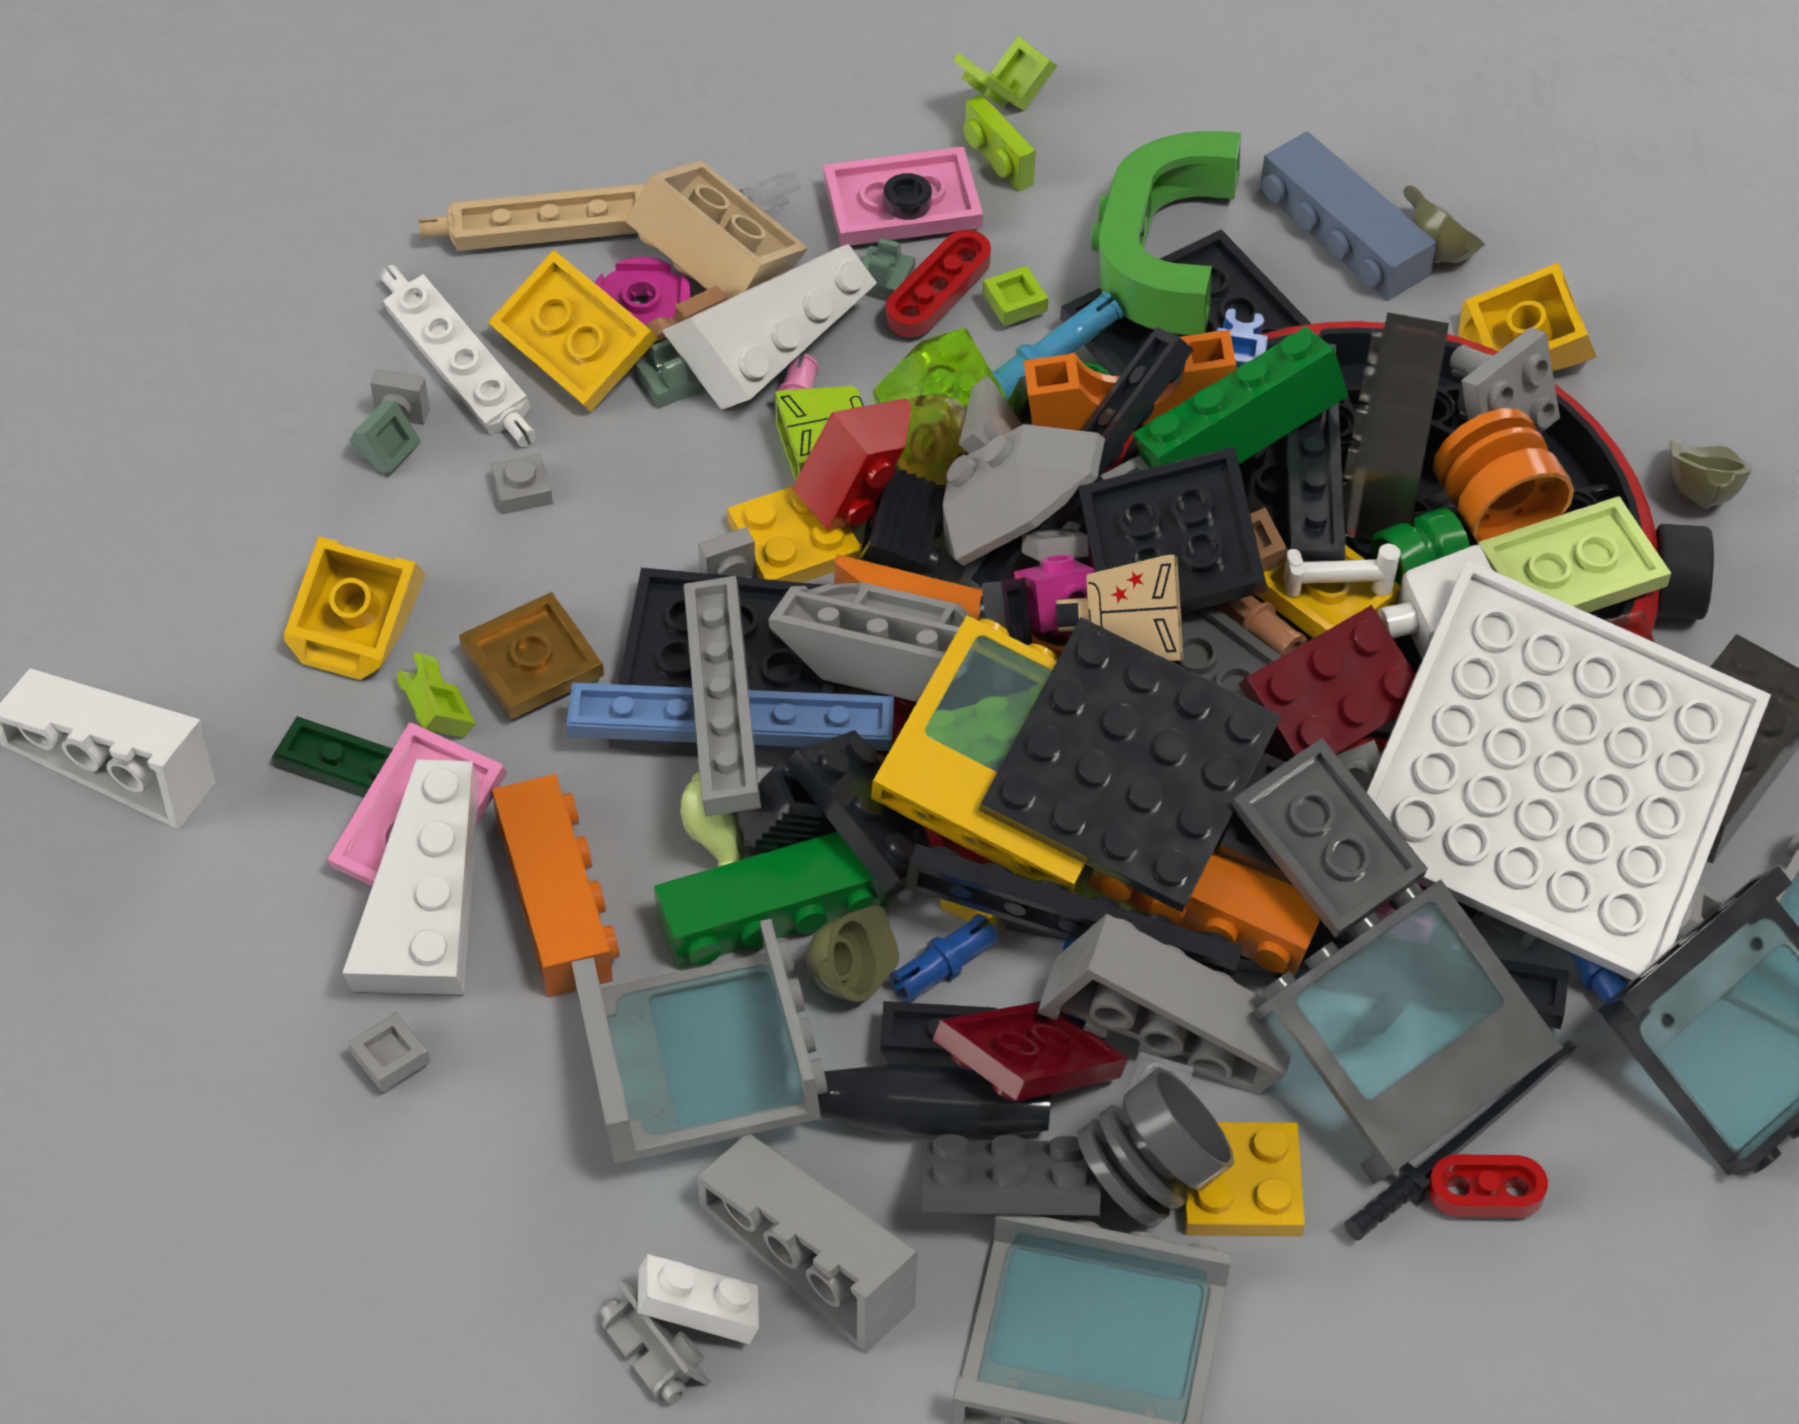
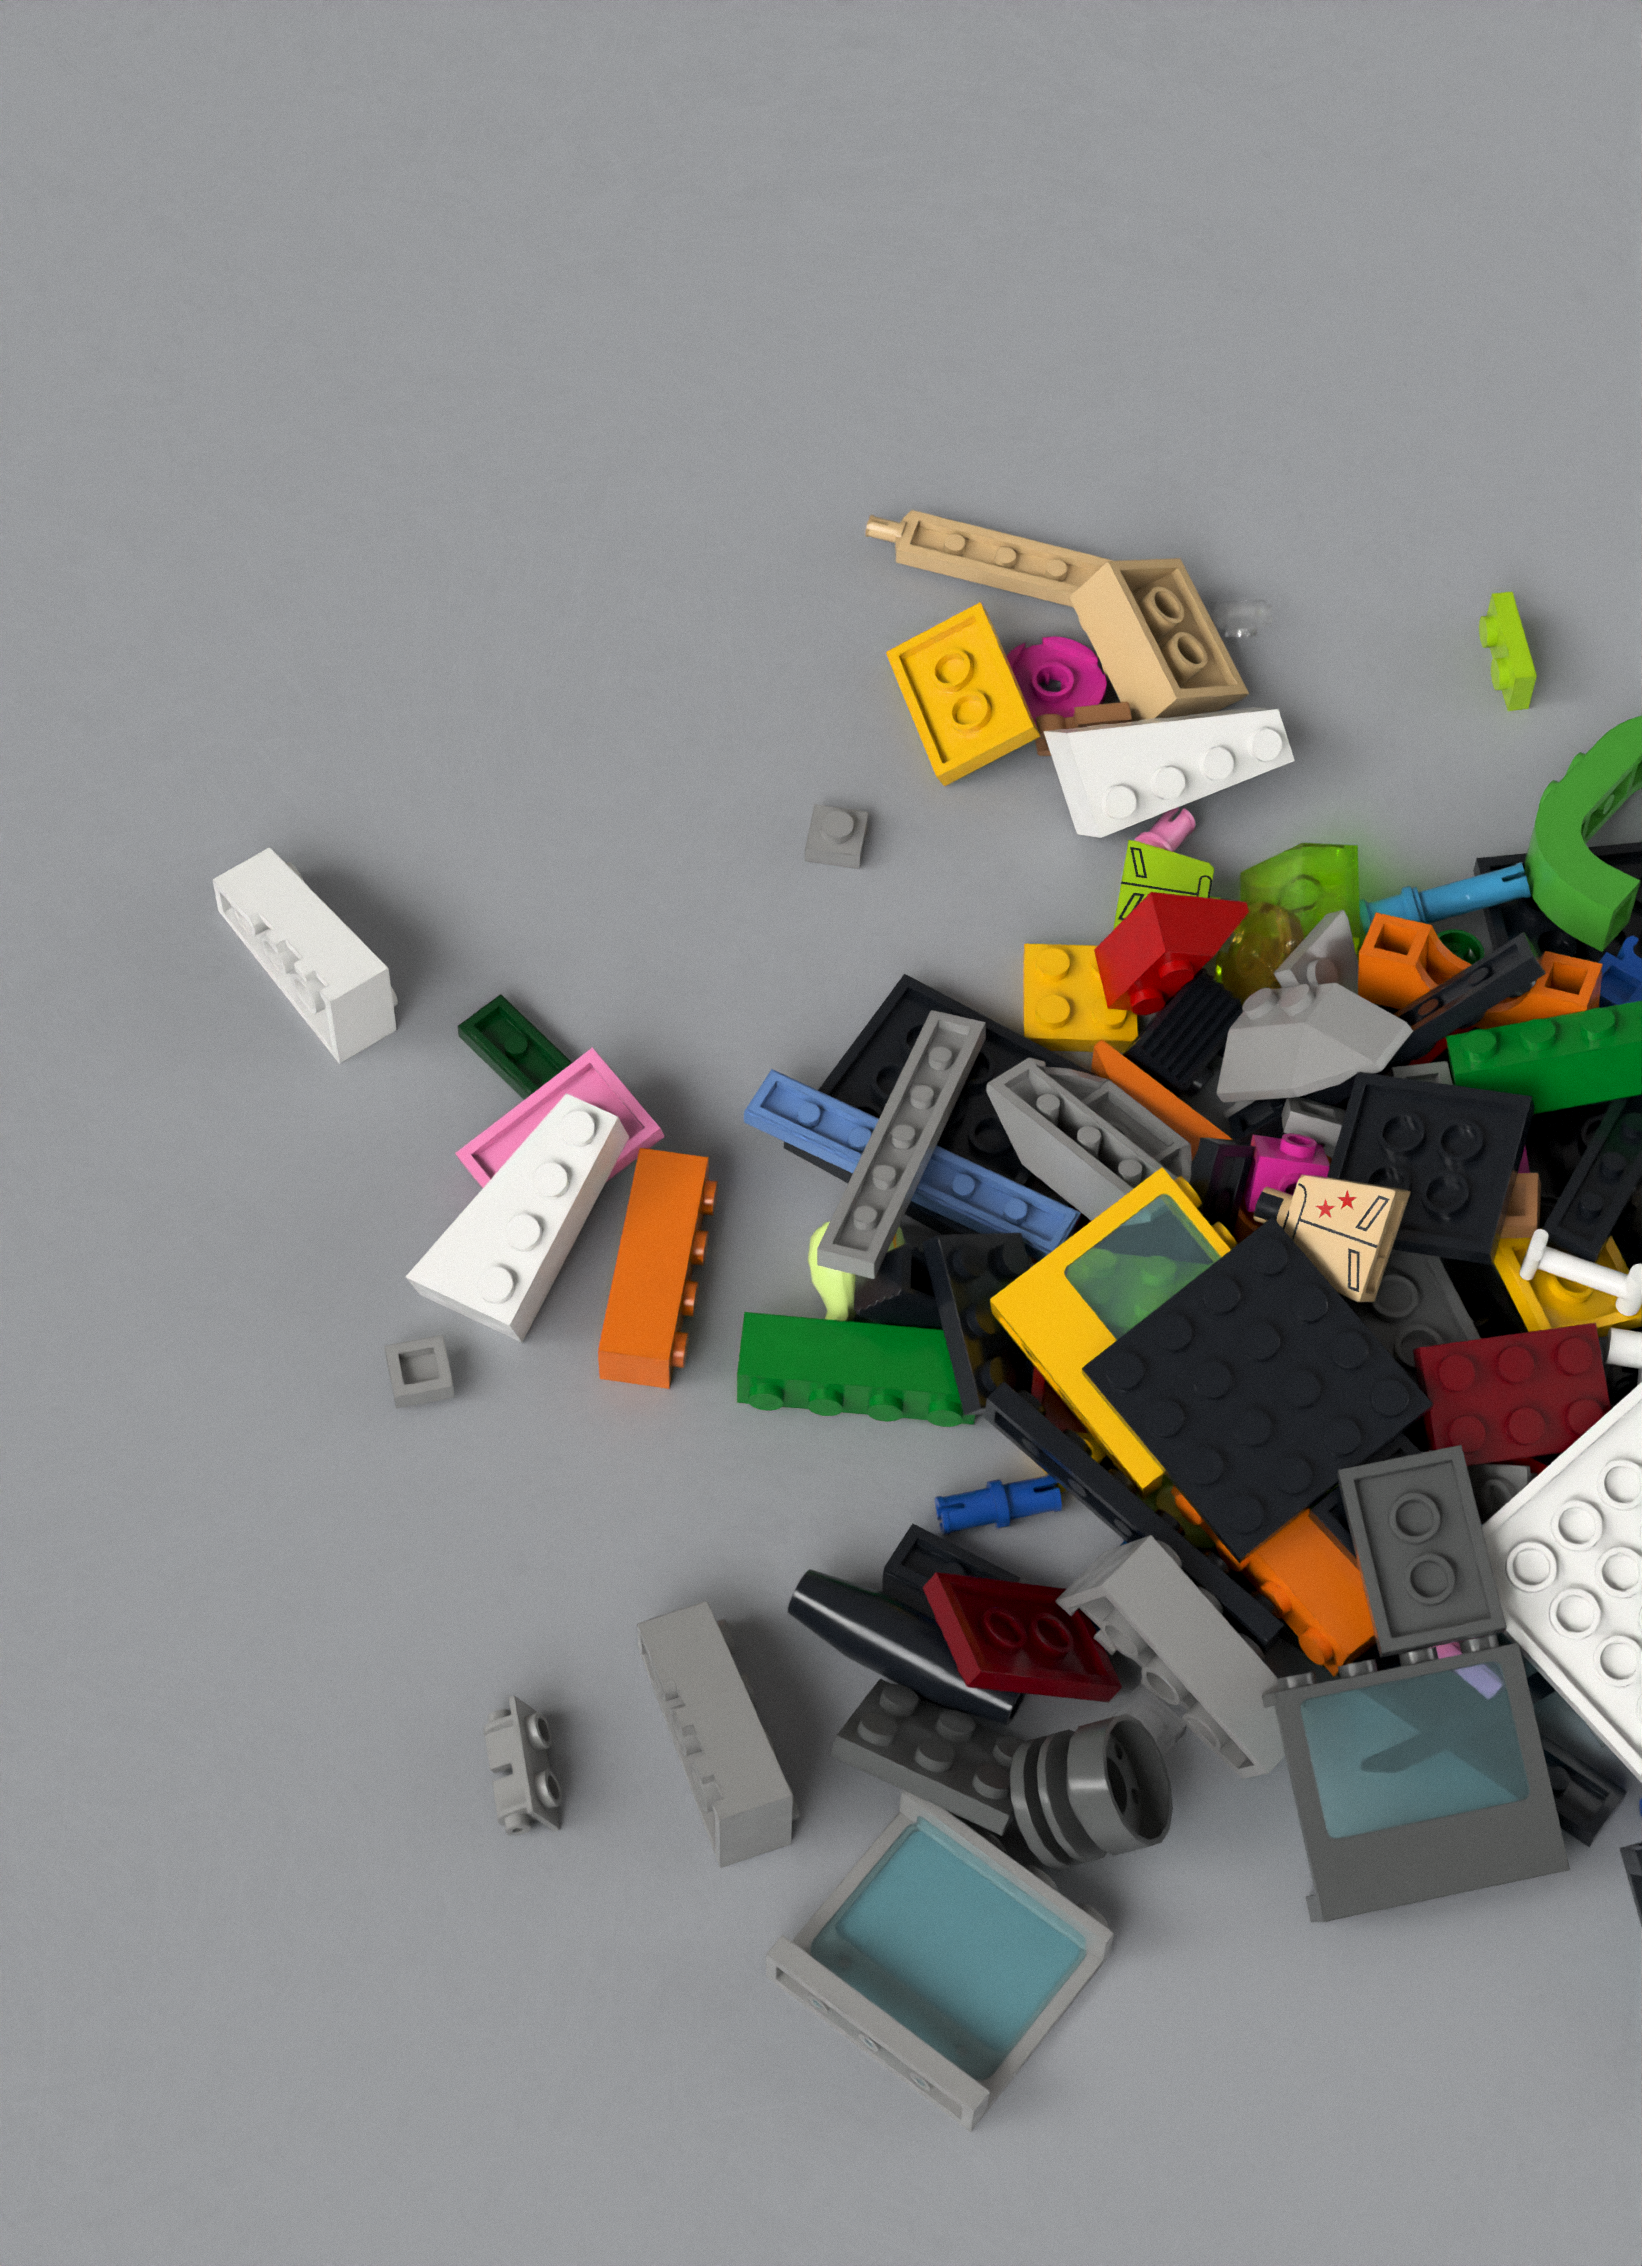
camera: 25 degrees right, 5 degrees up
(351, 608) = (602, 905): yellow slope -> none
(385, 437) = (725, 737): sand green tile -> none
(405, 389) = (759, 699): light grey plate -> none
(436, 703) = (636, 1034): lime plate -> none
(458, 355) = (841, 676): white plate -> none
(531, 655) = (754, 1022): pearl gold plate -> none
(666, 375) = (1035, 778): sand green tile -> none
(698, 1299) = (580, 1745): white plate -> none
(701, 1052) = (702, 1498): clear light blue panel -> none
(728, 554) = (997, 995): light grey plate -> none
(853, 954) = (908, 1463): olive piece -> none
(857, 196) = (1377, 672): bright pink plate -> none
(887, 267) = (1320, 749): sand green tile -> none
(907, 196) = (1377, 676): black tile -> none
(951, 268) = (1375, 769): red plate -> none
(1014, 78) = (1560, 586): lime bracket -> none
(1015, 295) = (1438, 827): lime plate -> none
(1258, 1192) = (1189, 1873): yellow plate -> none
(1263, 623) = (1481, 1294): nougat axle -> none
(1414, 1182) = (1346, 1939): black sword -> none
(1485, 1185) = (1422, 1973): red plate -> none

